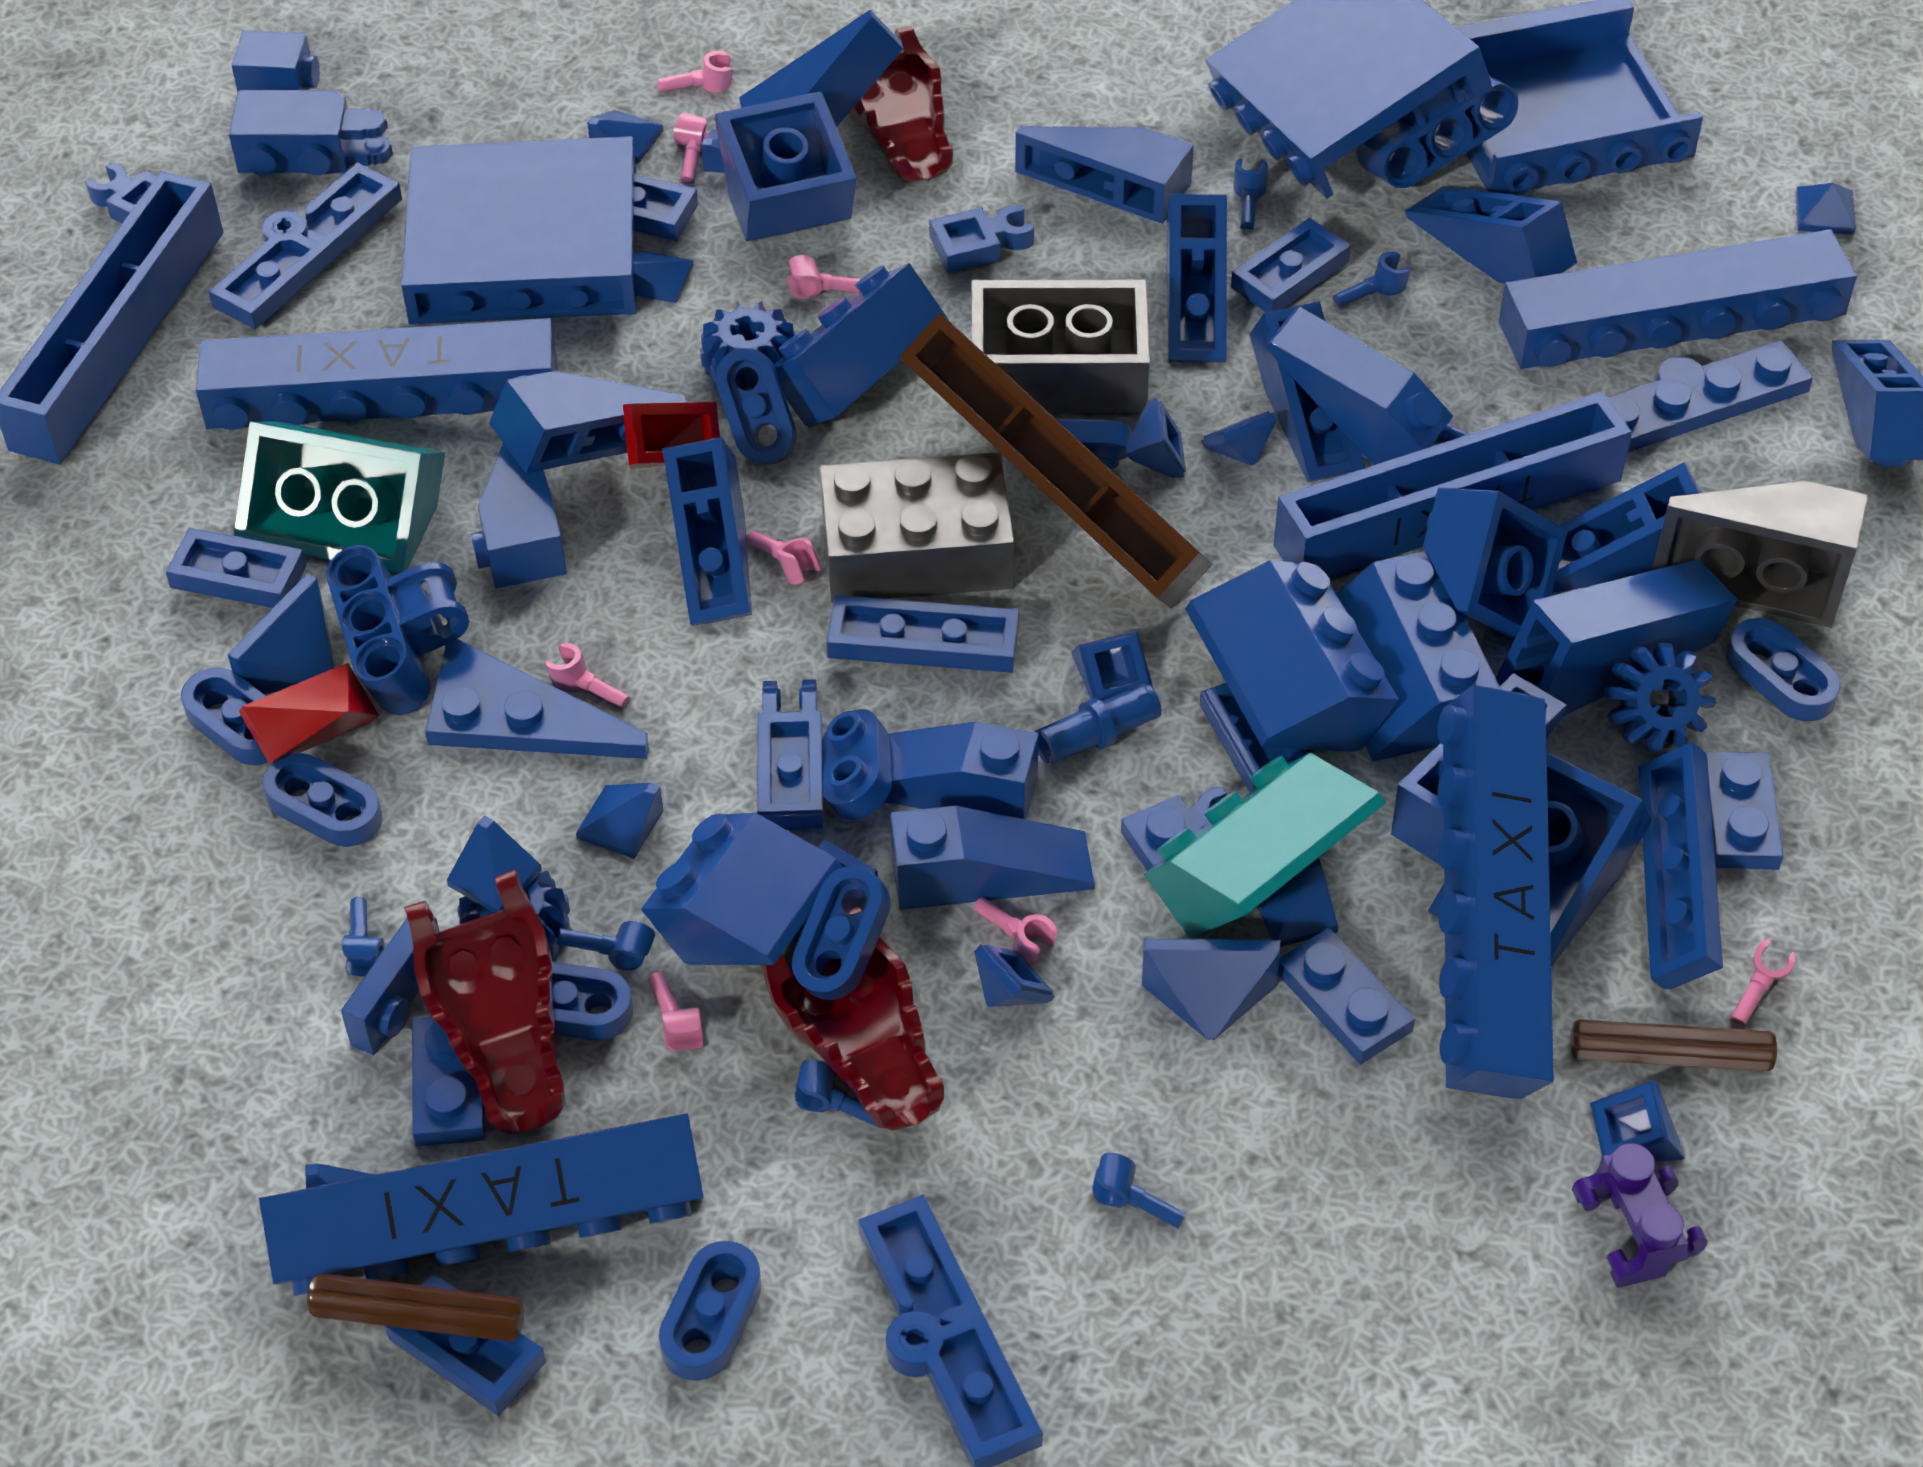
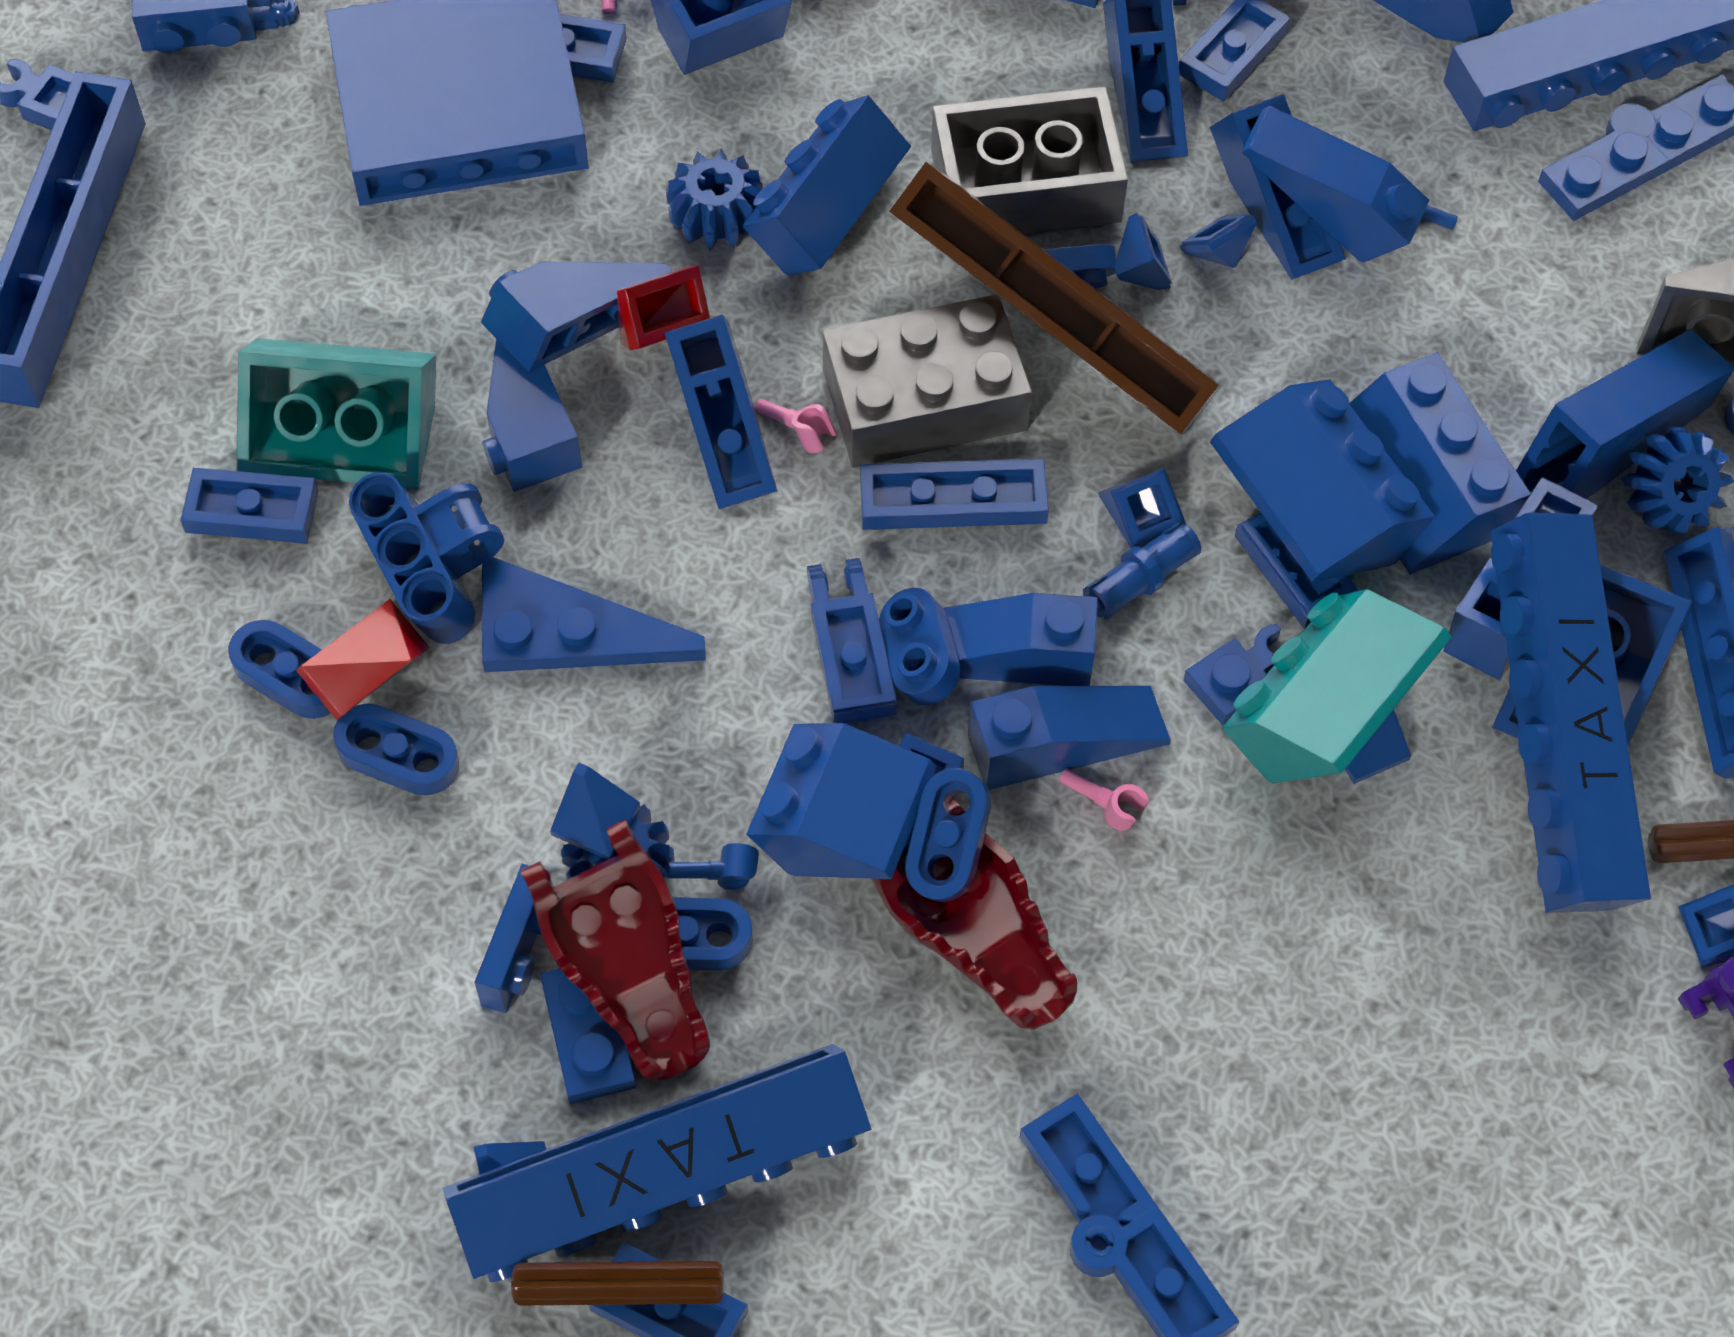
camera: 10 degrees left, 10 degrees up
(287, 642) = (325, 584): blue slope -> none
(302, 247) = (234, 130): blue hinge -> none
(357, 946) = (473, 910): blue hand -> none
(368, 372) = (341, 271): brick -> none
(575, 677) = (620, 581): bright pink hand -> none
(622, 817) = (696, 729): blue slope -> none
(660, 275) = (606, 122): blue slope -> none
(681, 1026) = (804, 946): bright pink hand -> none
(709, 1314) = (896, 1241): blue plate -> none
(757, 407) = (738, 266): blue plate -> none
(808, 282) = (756, 115): bright pink hand -> none
(817, 1092) = (948, 995): blue hand -> none
(975, 240) = (915, 49): blue plate -> none
(1009, 978) = (1111, 853): blue slope -> none
(1115, 1188) = (1251, 1055): blue hand -> none
(1210, 979) = (1302, 831): blue slope -> none
(1345, 996) = (1431, 827): blue plate -> none
(1386, 281) = (1325, 50): blue hand -> none
(1388, 505) = (1440, 277): blue brick -> none
(1492, 555) = (1498, 355): blue slope -> none
(1621, 533) = (1599, 312): blue slope -> none

